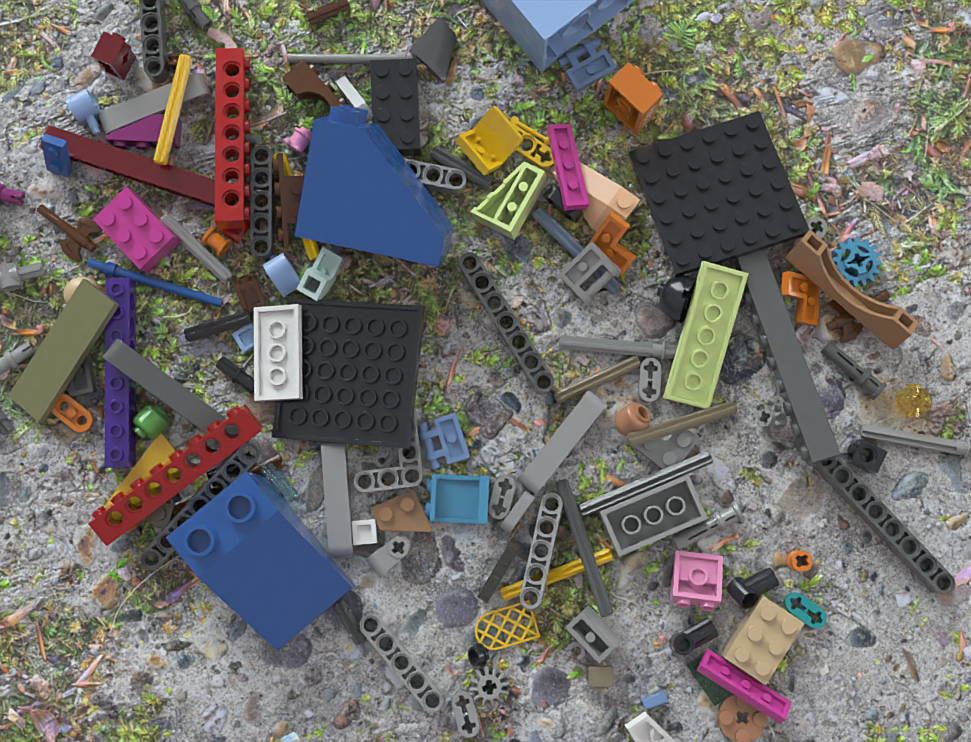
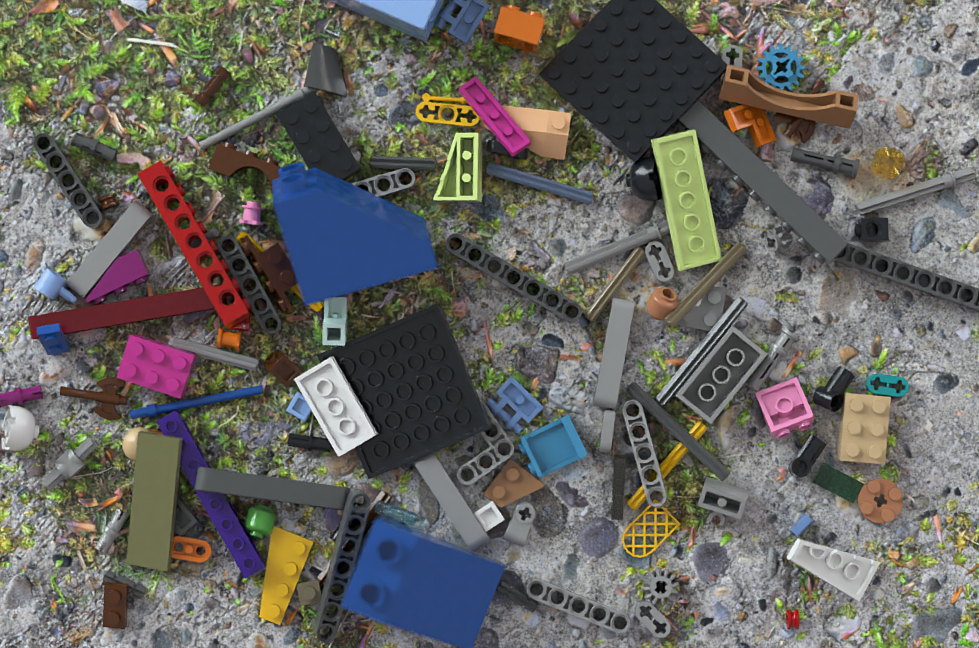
camera: 25 degrees left, 5 degrees up
(110, 529) = (280, 626): red brick -> none
(114, 55) = (52, 225): dark red brick -> none
(173, 109) = (131, 246): yellow axle -> none
(218, 326) = (270, 410): black axle -> none
(282, 274) = (302, 337): light blue piece -> none
(351, 95) = (277, 152): beam -> none
(478, 655) = (637, 566): black plate -> none
(490, 141) = (416, 129): yellow bracket -> none
(507, 499) = (593, 424): light grey beam -> none
(583, 266) = (554, 194): light grey plate -> none
(600, 674) = (746, 528): dark tan plate -> none
(607, 240) = (563, 167): orange plate -> none
(744, 686) = (868, 474): dark pink plate -> none
(807, 560) = (866, 342): orange bush -> none

